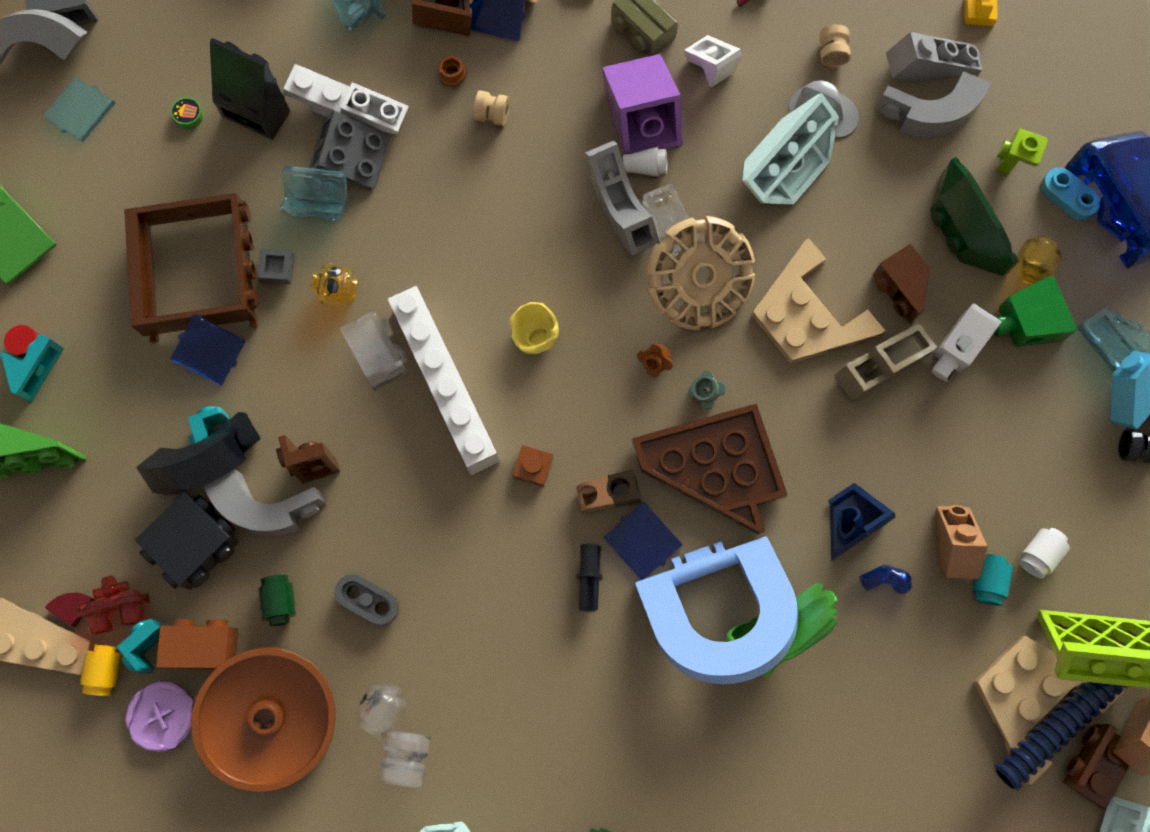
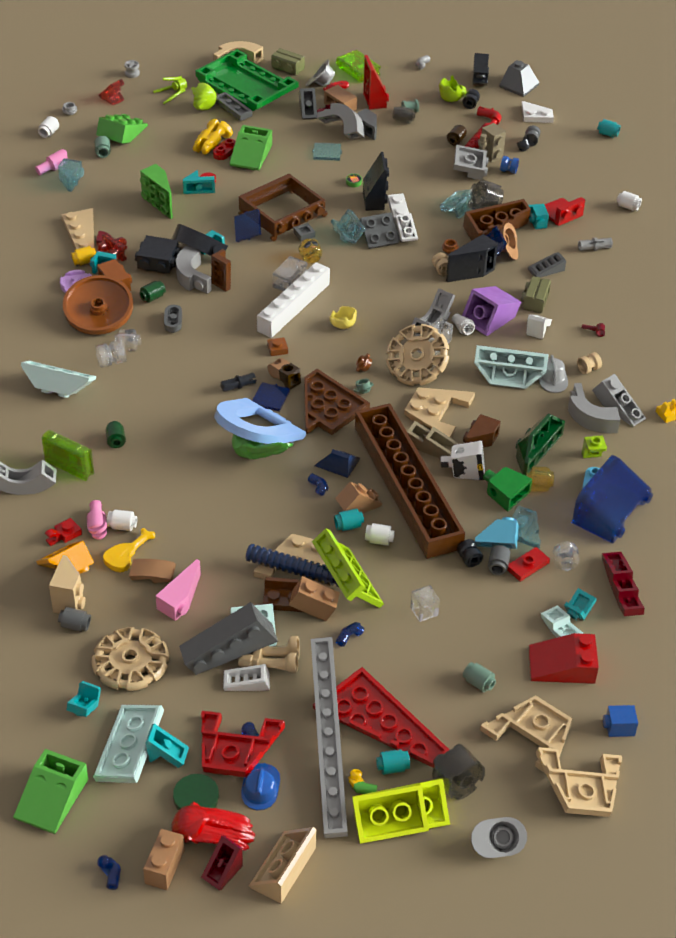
camera: 55 degrees right, 30 degrees down
(522, 57) = (472, 259): none -> black slope
(962, 446) = (409, 481): none -> reddish brown brick

